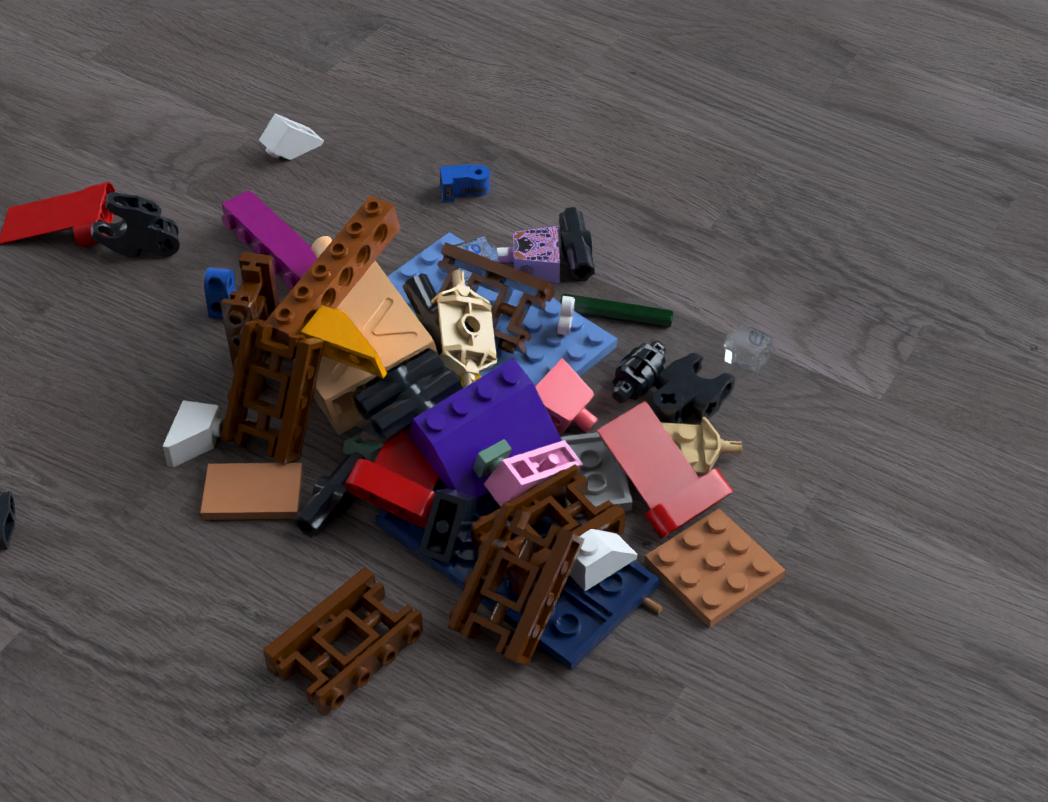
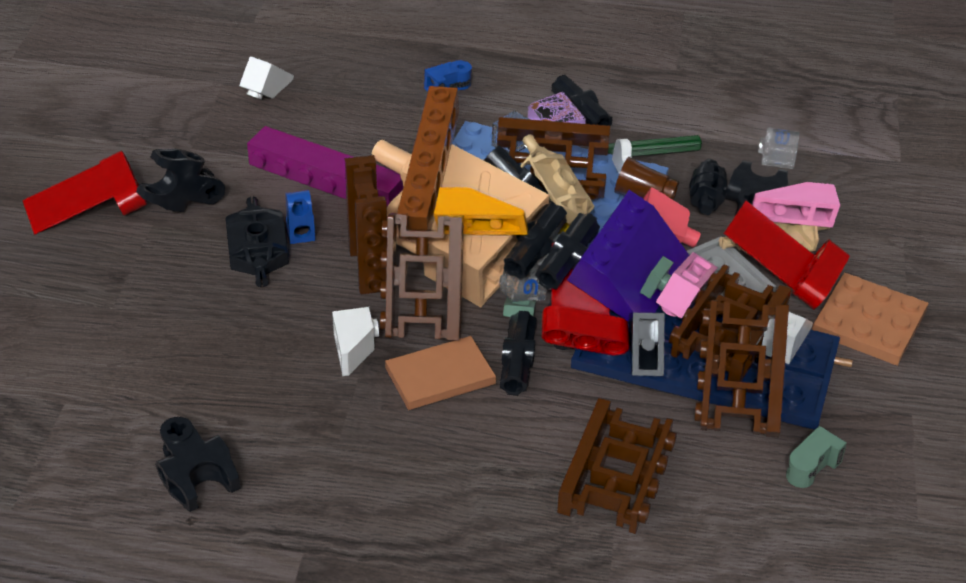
camera: 25 degrees left, 5 degrees down
(169, 318) = (256, 252): none -> black plate
(541, 697) = (813, 455): none -> sand green leg
(558, 342) = (641, 178): none -> reddish brown plant
(707, 419) = (800, 204): none -> bright pink slope

